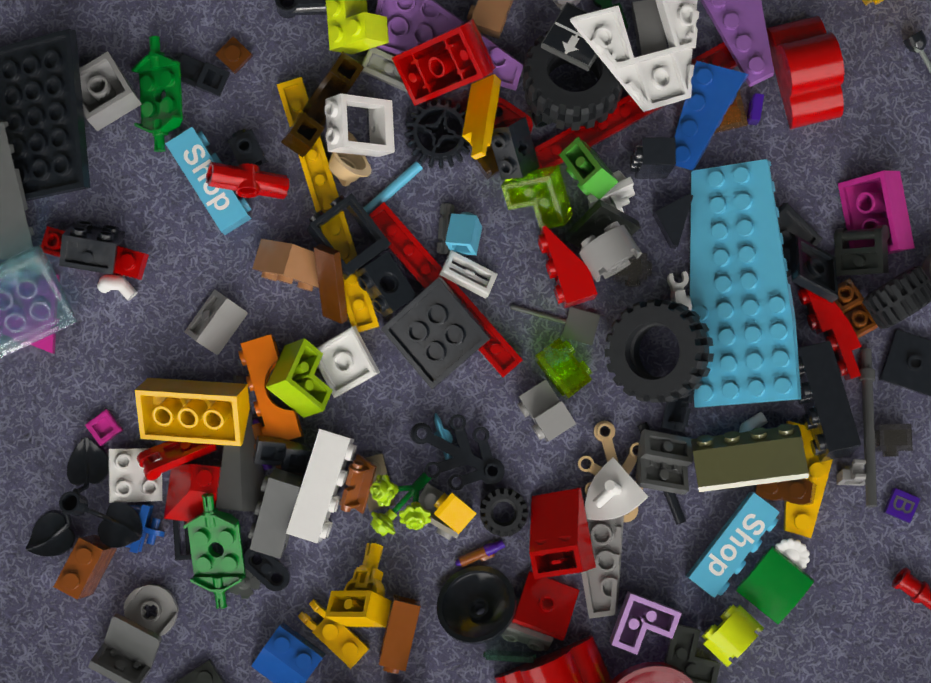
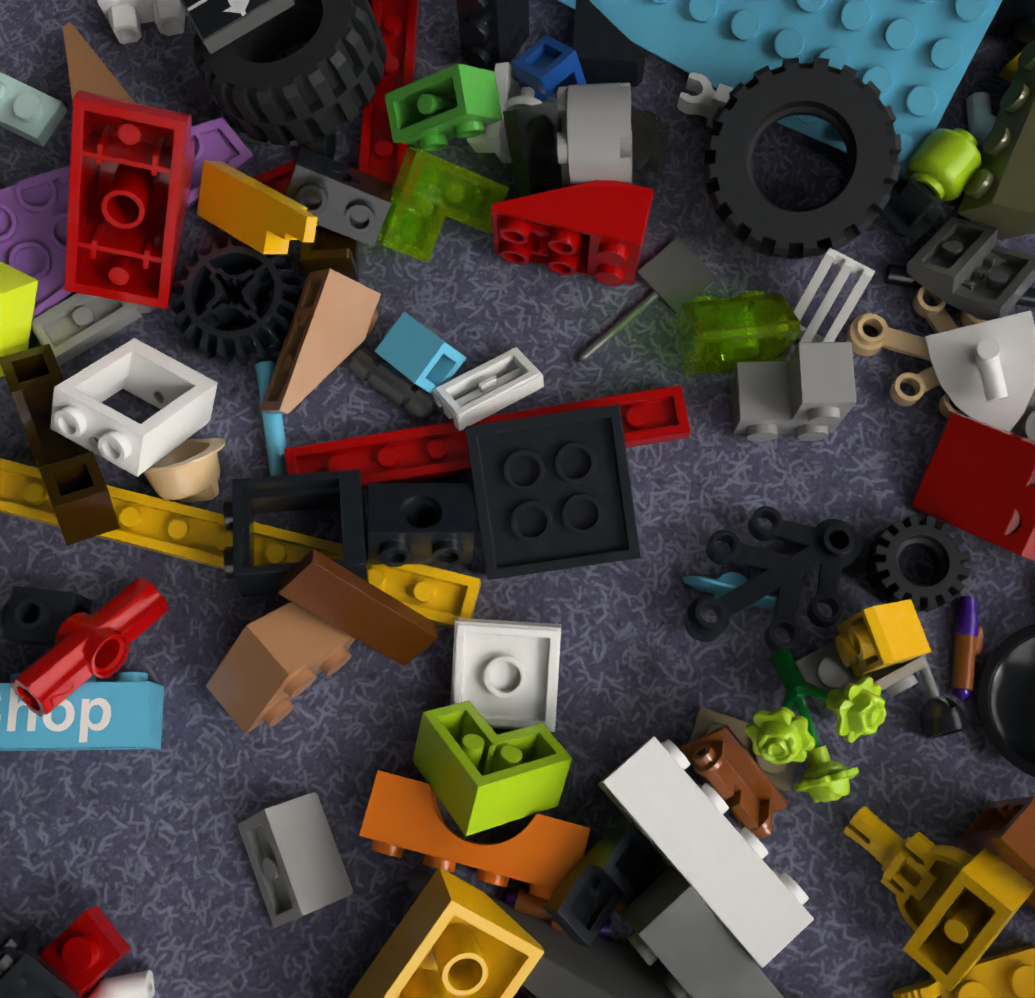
camera: 60 degrees left, 10 degrees down
(442, 557) = (939, 714): none -> black hinge
(445, 184) = (325, 329): none -> medium nougat slope
(587, 404) = (848, 266): none -> white tile
(642, 203) = (547, 67): none -> blue panel
(708, 419) = (945, 162): none -> lime head

